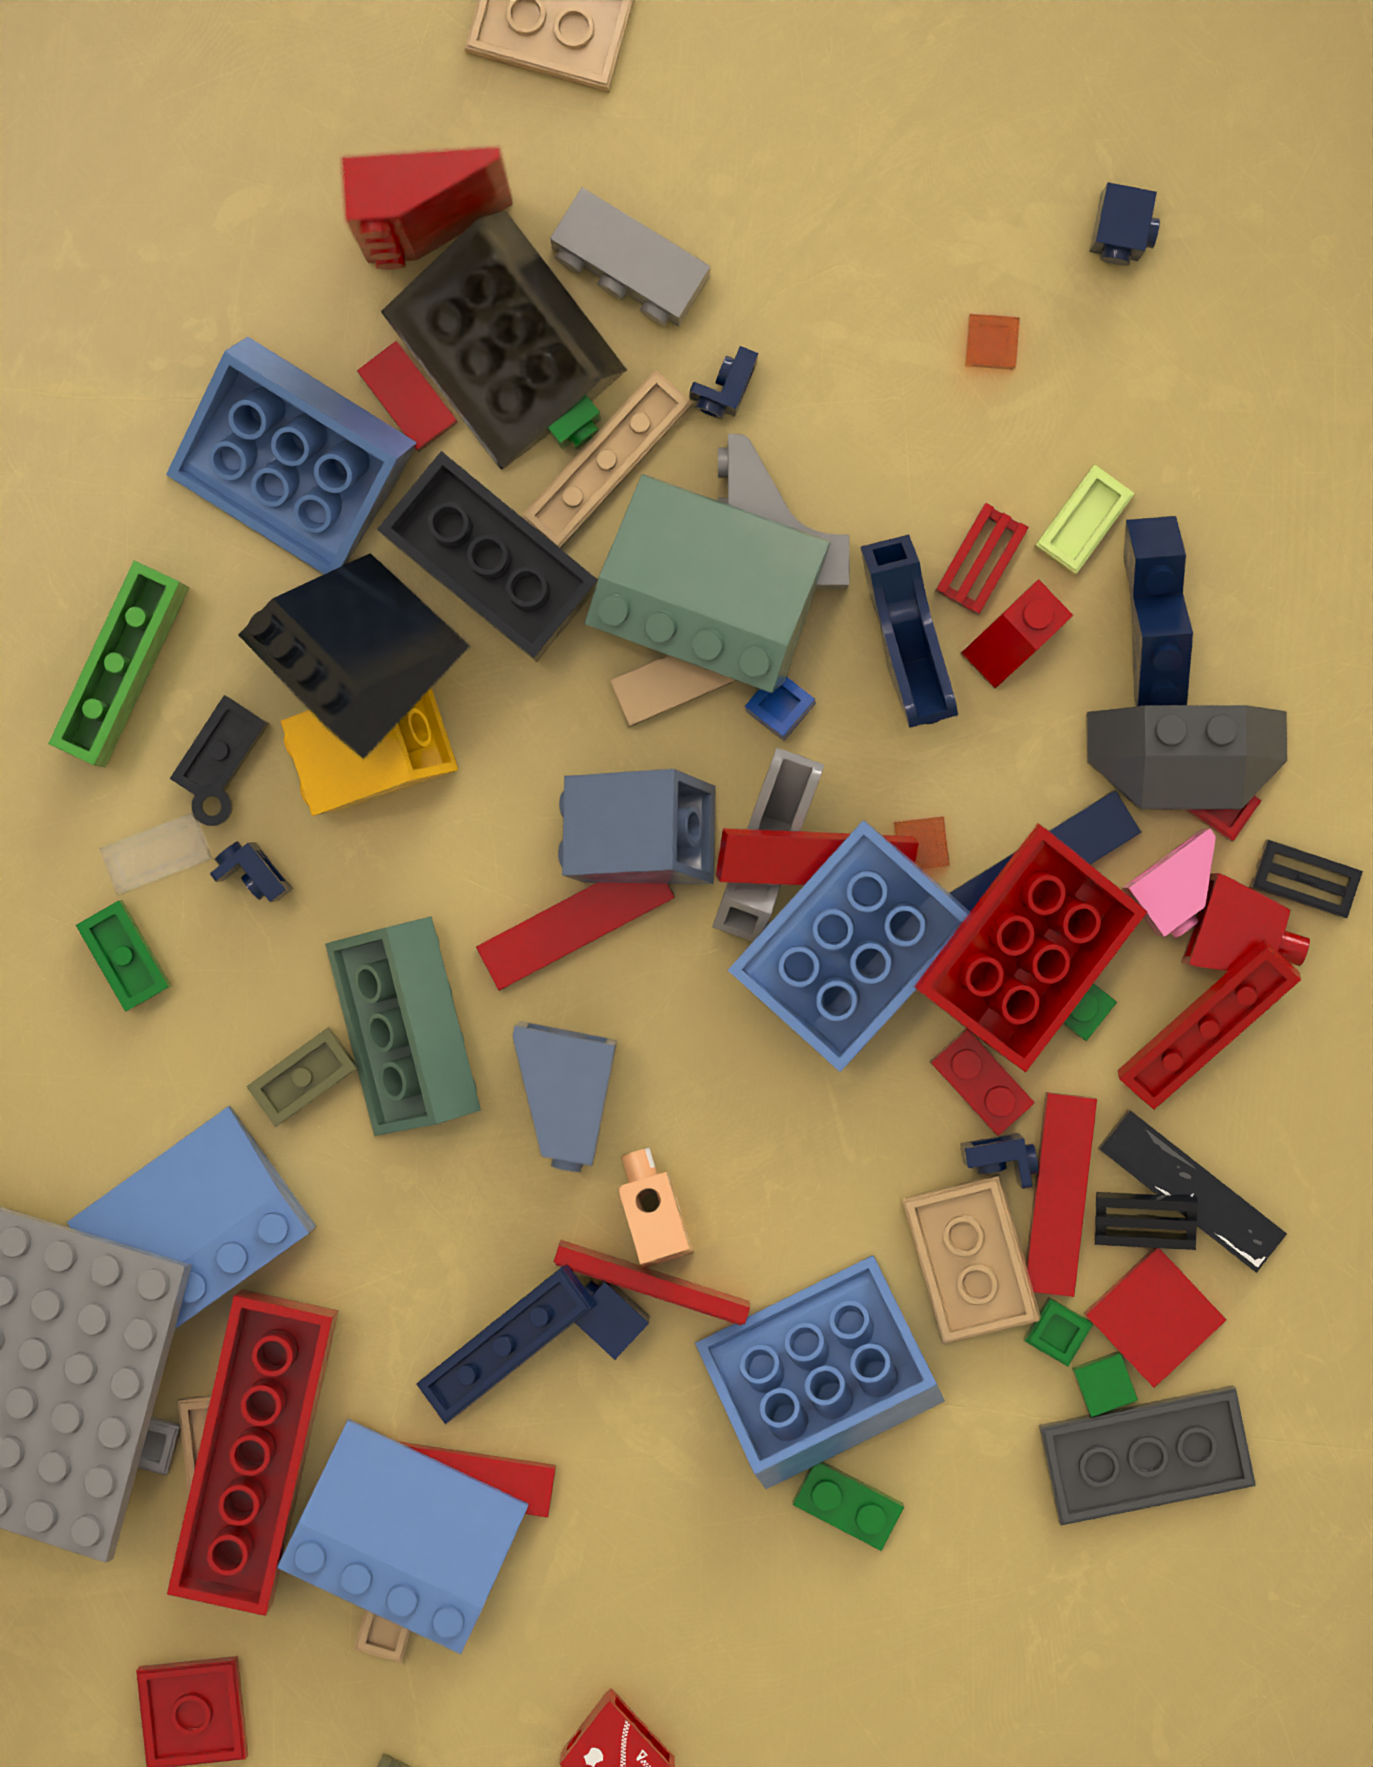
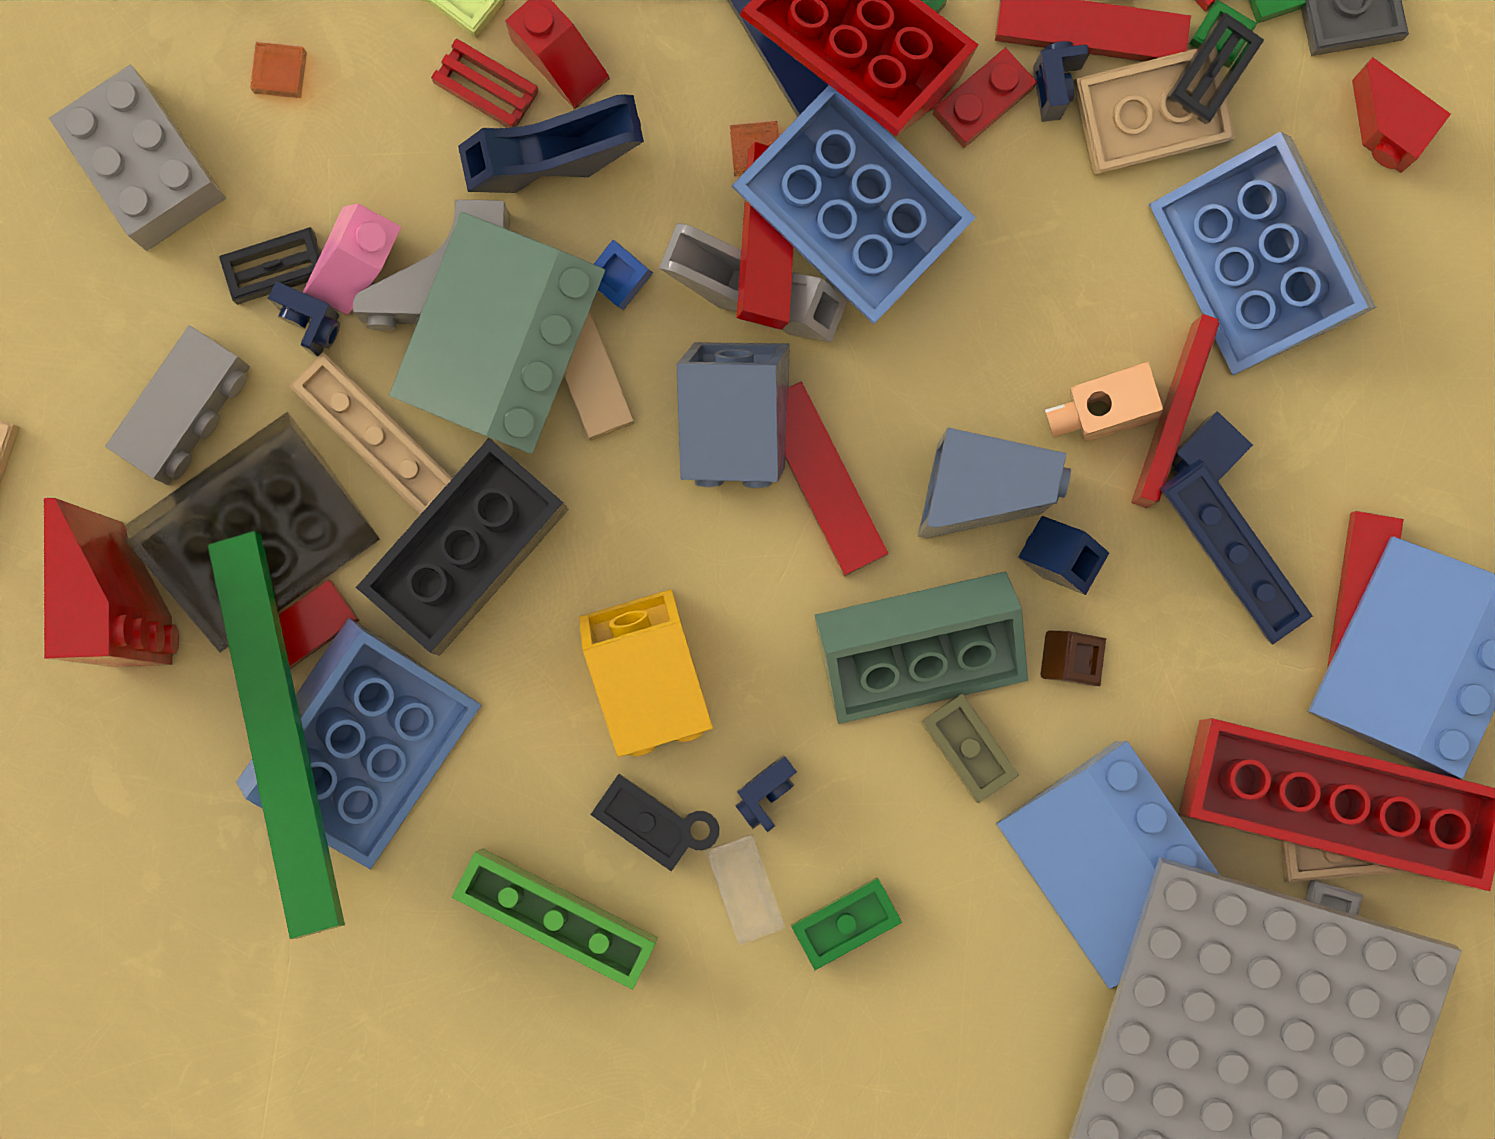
camera: 90 degrees left, 5 degrees down
(289, 378) = (276, 736): none -> green tile
(354, 649) = (549, 675): black slope -> none
(398, 1181) = (1073, 657): none -> reddish brown slope
(498, 1168) = (1063, 555): none -> dark blue brick
(576, 425) = (339, 462): green plate -> none
(788, 428) = (351, 256): none -> bright pink slope
(796, 386) = (260, 250): none -> black tile
(848, 1504) = (1389, 232): green plate -> none
(888, 201) = (137, 158): none -> light grey brick
(967, 1509) = (1394, 116): none -> red slope
(1022, 1304) = (1191, 102): none -> black tile

